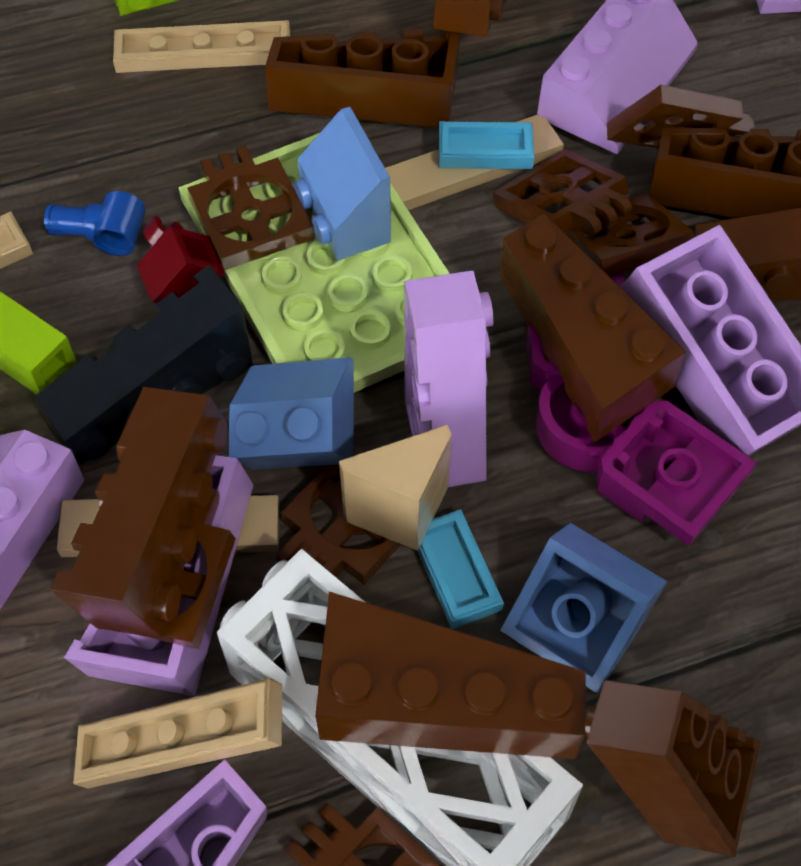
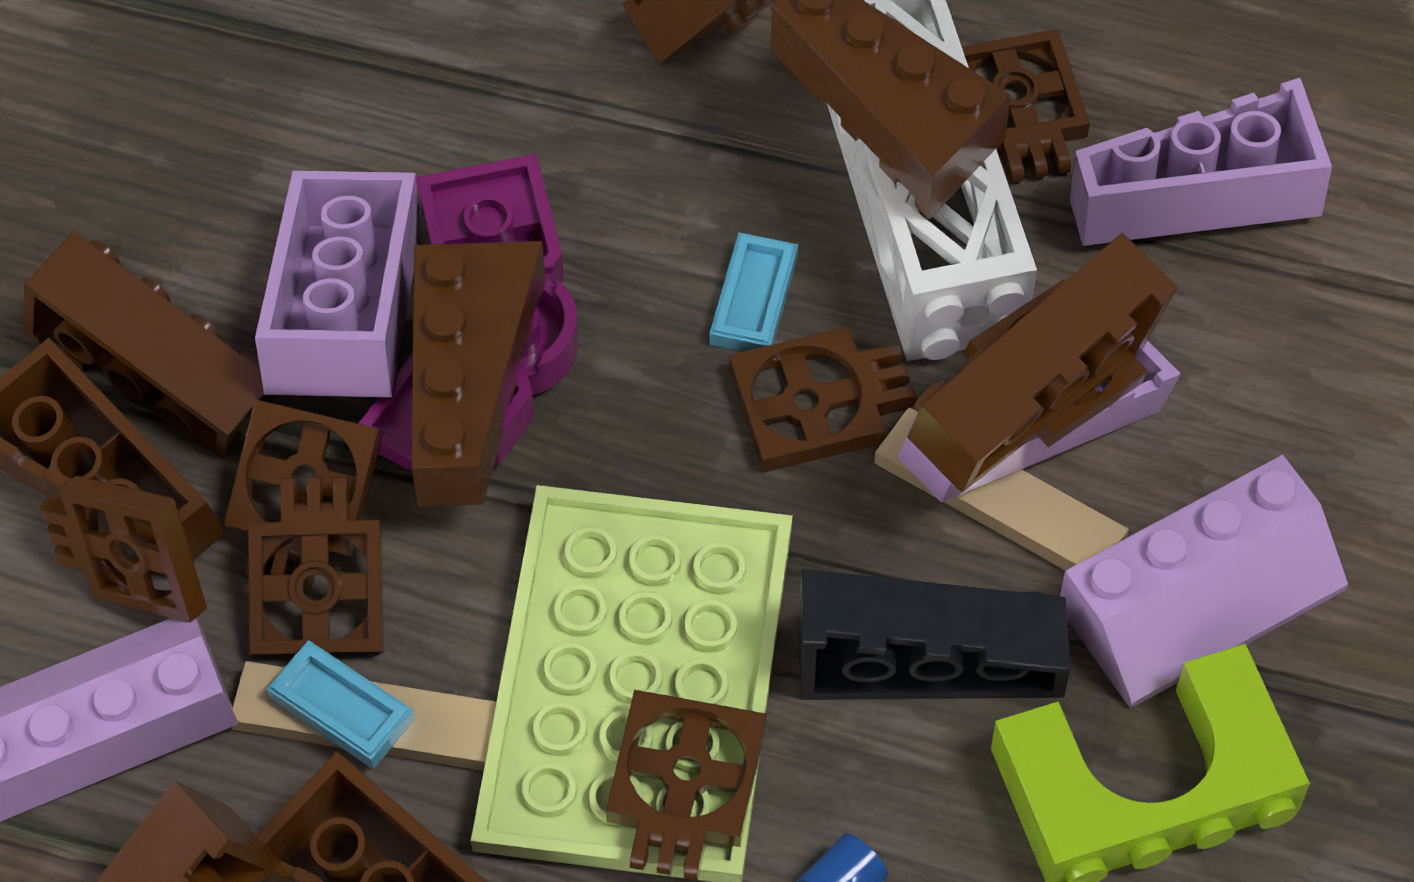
camera: 145 degrees left, 0 degrees up
(174, 259) = (815, 751): dark red brick -> none
(180, 734) = (1087, 222): tan tile -> none
(294, 414) = (811, 484): medium blue slope -> none
(345, 188) = (575, 684): medium blue slope -> none
(398, 486) = (767, 327): tan slope -> none
(448, 366) = (651, 381): lavender wedge -> none
(583, 604) = (668, 181): medium blue slope -> none

